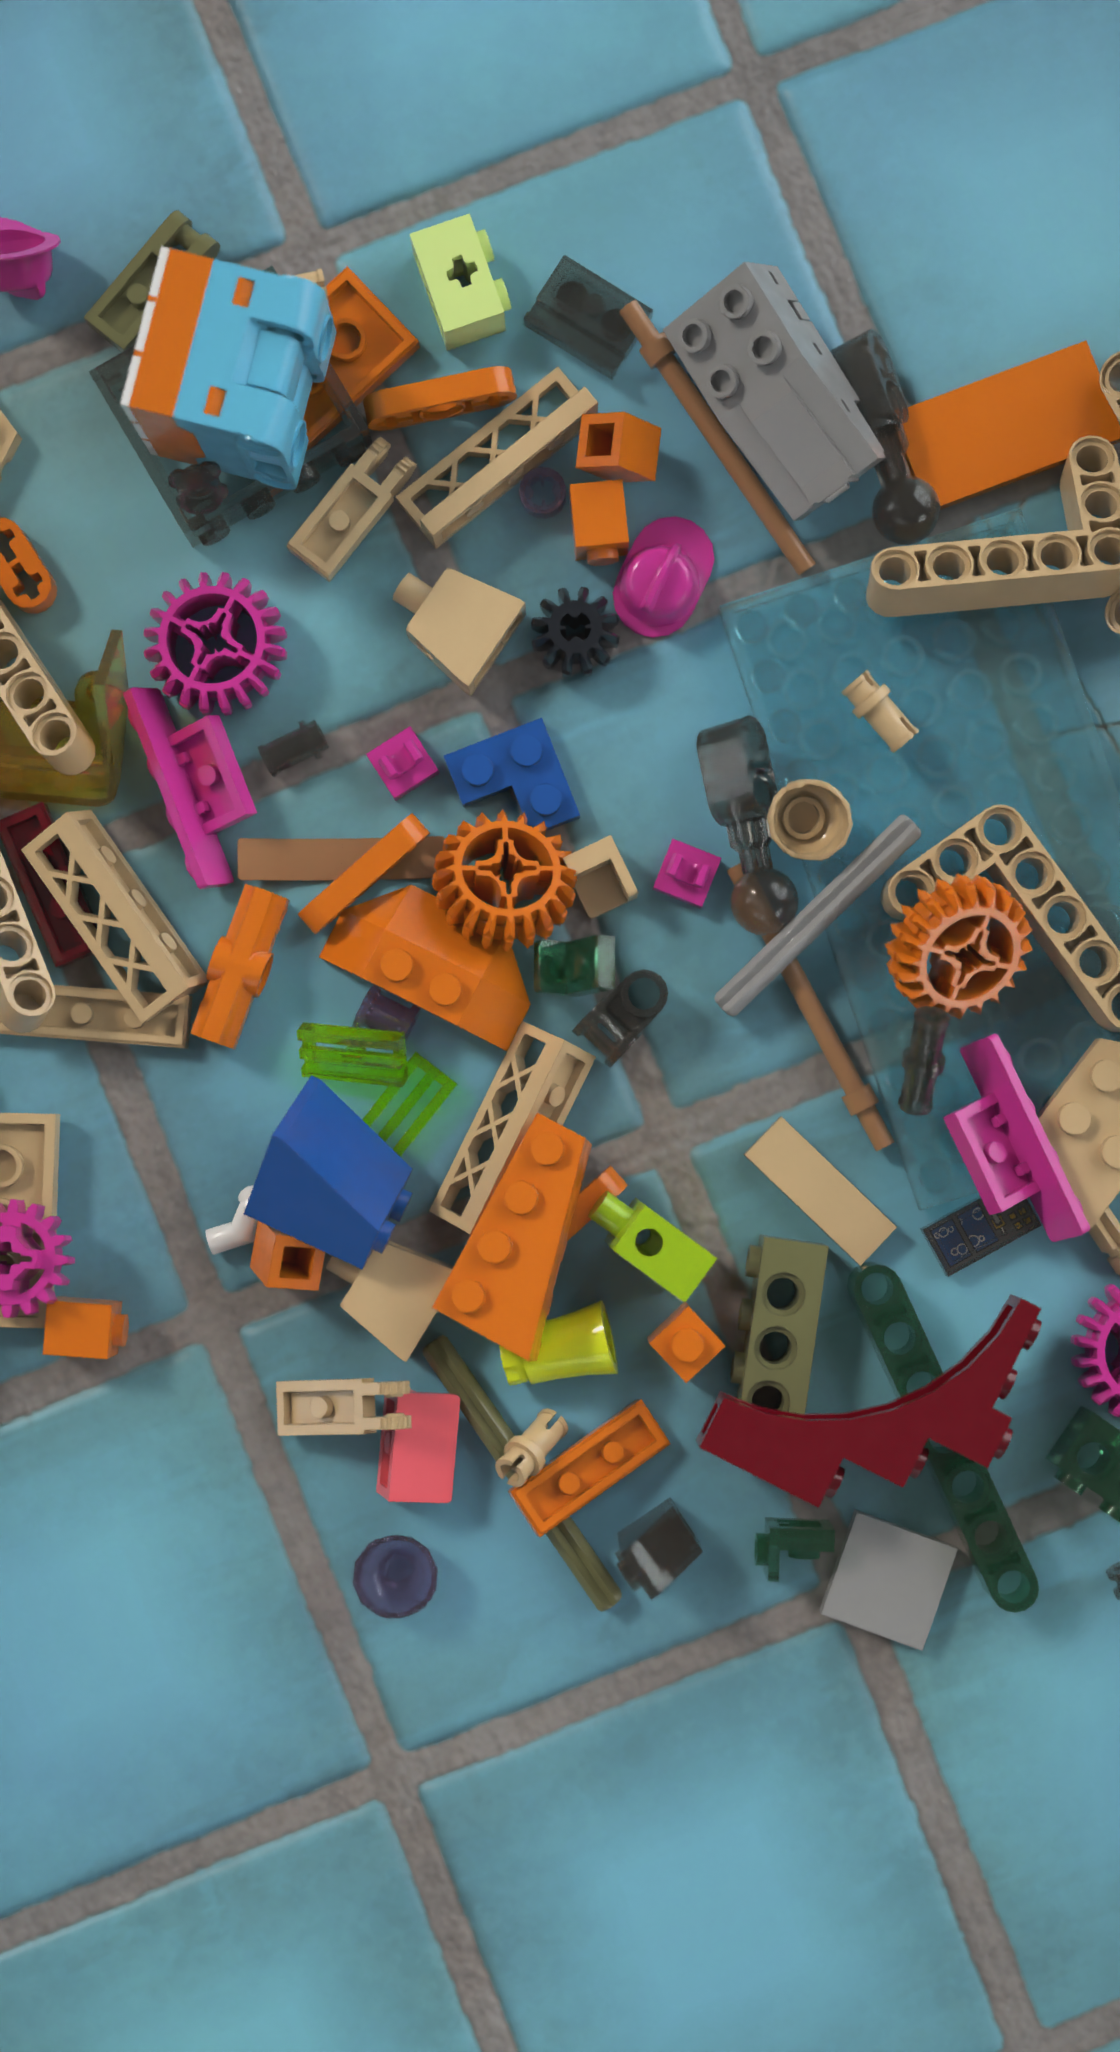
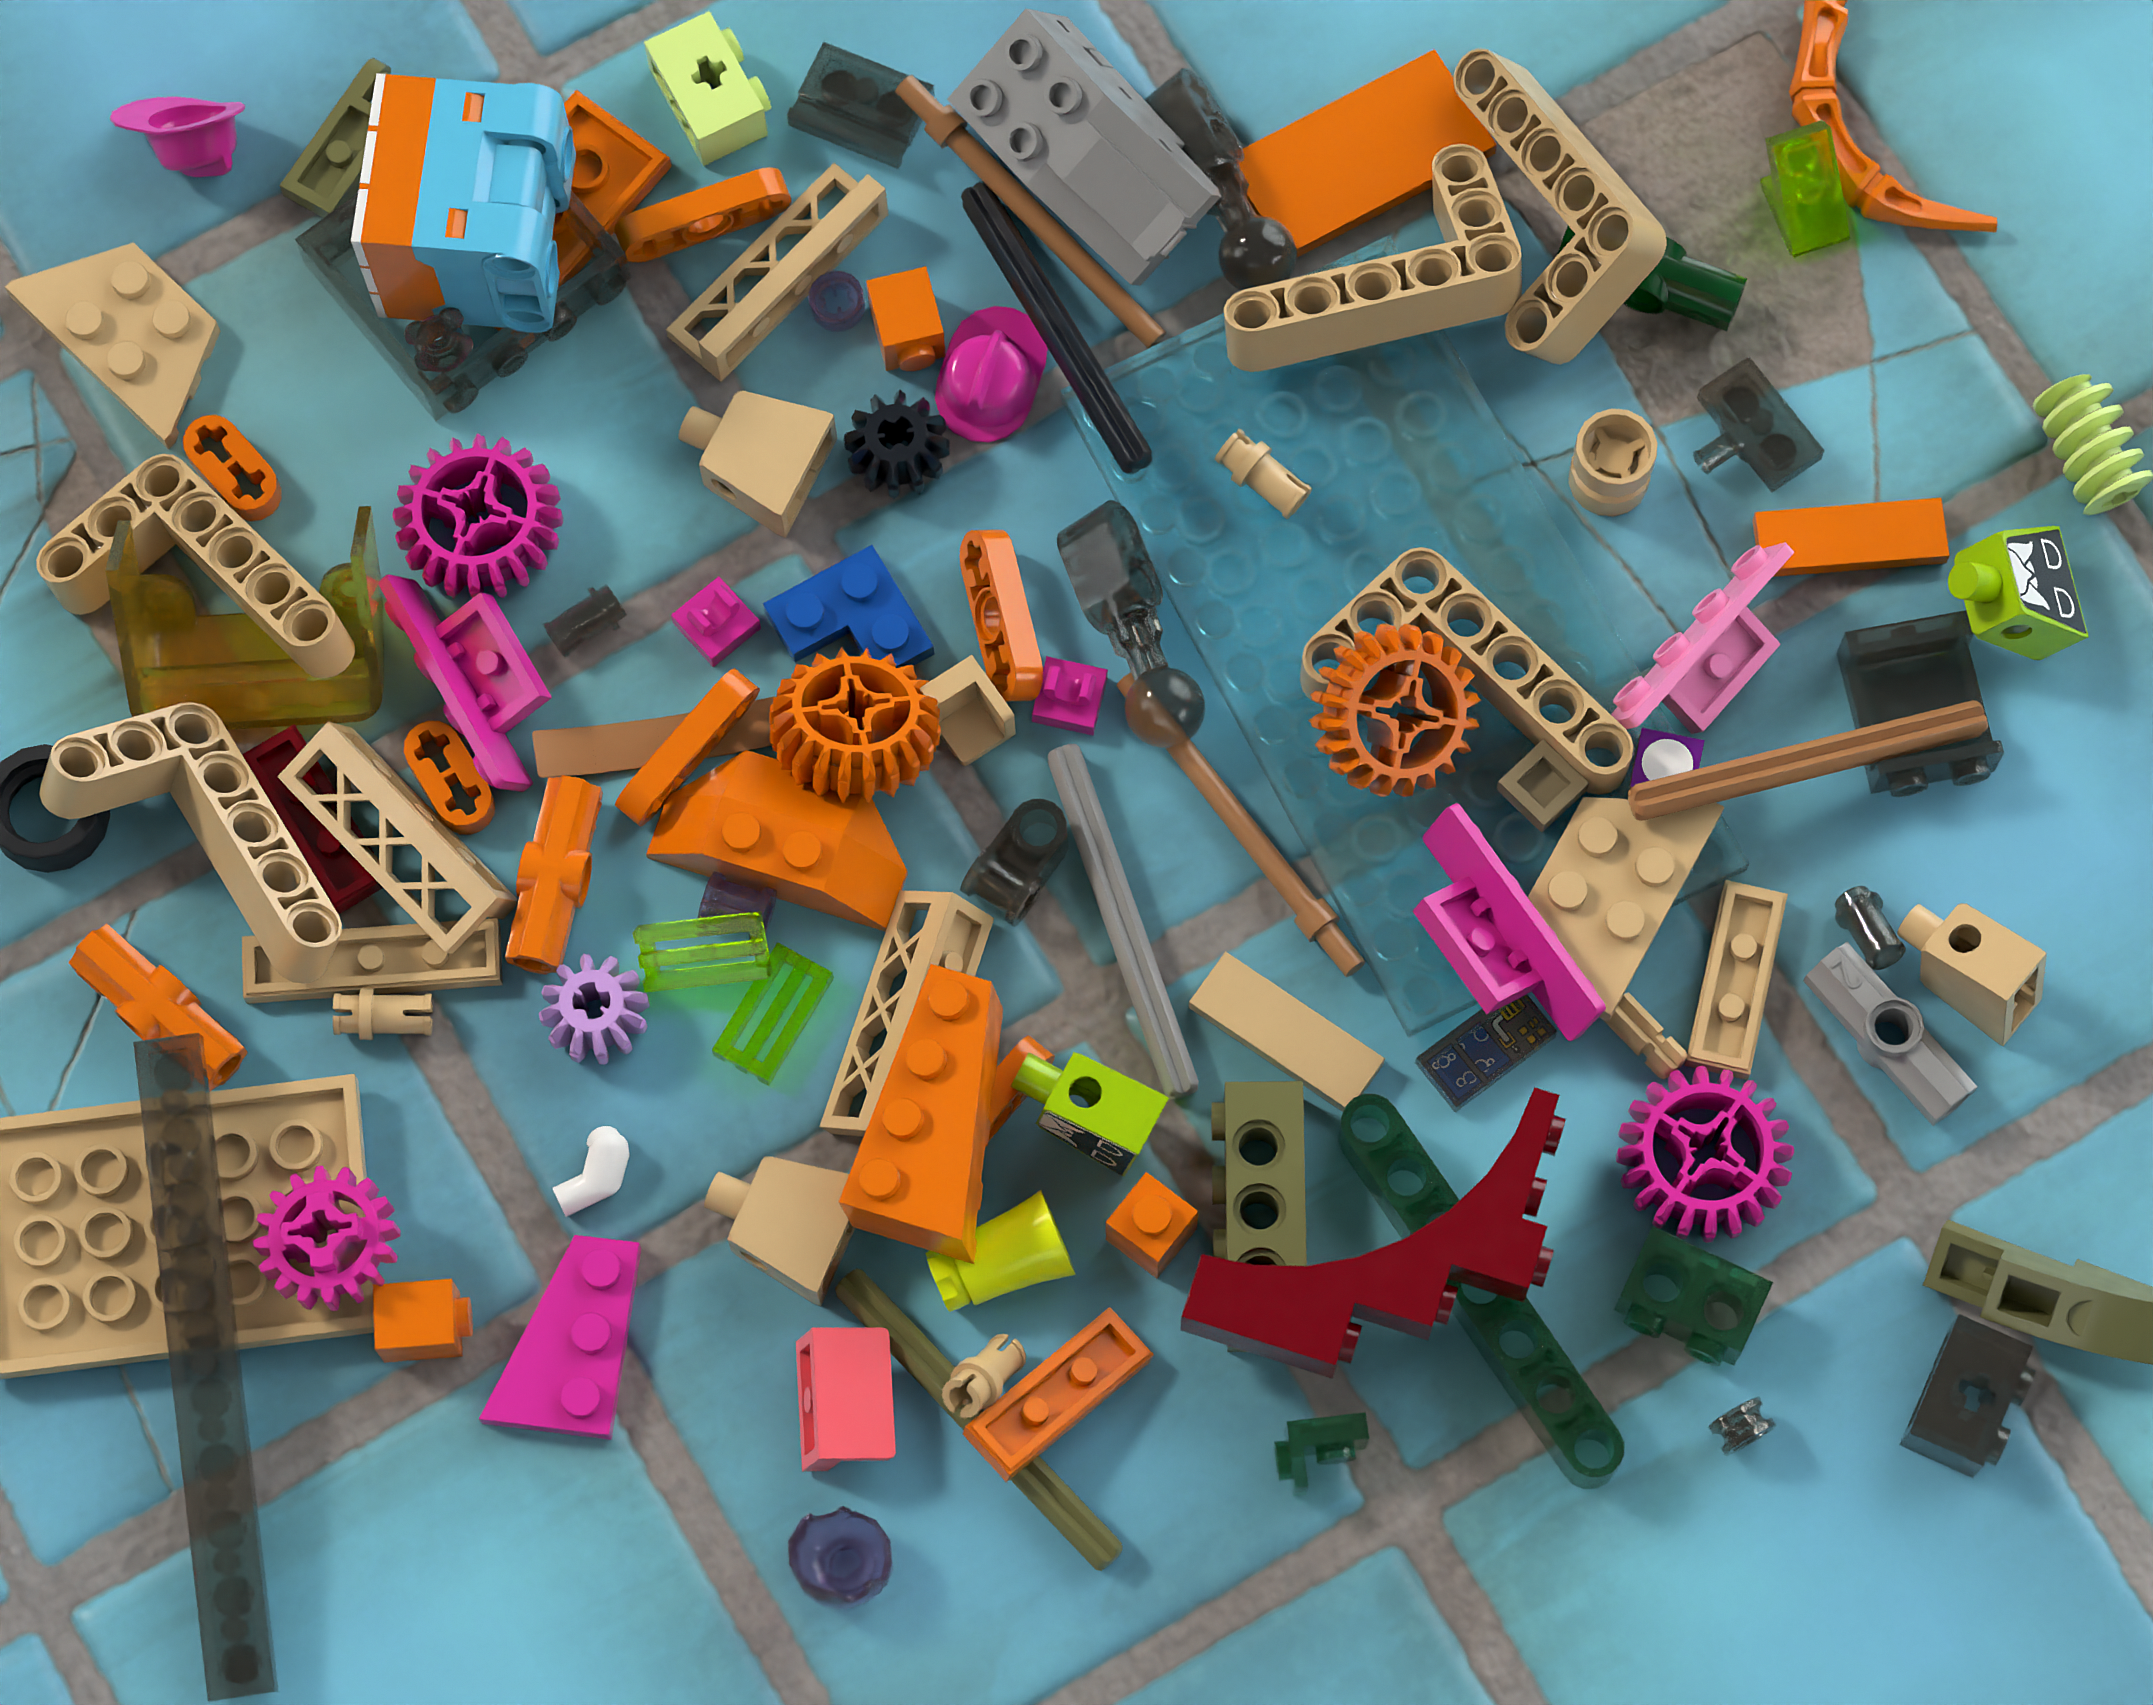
camera: 10 degrees left, 15 degrees down
(76, 1062) = (382, 1014): none -> tan pin
(153, 871) = (437, 784): none -> orange beam
(207, 1362) = (574, 1346): none -> dark pink wing
(247, 1102) = (569, 1009): none -> lavender gear
(285, 1261) = (657, 1189): orange brick -> none
(330, 1179) = (694, 1085): blue slope -> none
(336, 1406) = (742, 1359): tan hinge -> none
(349, 511) = (614, 352): tan hinge -> none
(575, 966) = (955, 815): clear green bracket -> none
(618, 447) = (916, 233): orange brick -> none
(640, 797) = (1001, 614): none -> orange beam
(656, 1549) = (1153, 1470): clear smoke slope -> none
(700, 1075) = (1123, 922): none -> light grey axle
(725, 550) = (1057, 329): none -> black axle
(809, 819) = (1199, 600): tan hair -> none
(818, 915) = (1228, 712): light grey axle -> none
(888, 1580) = (1446, 1479): light grey tile -> none
(923, 1060) = (1376, 846): clear smoke pin -> none
(1068, 1023) = (1542, 786): none -> dark tan plate

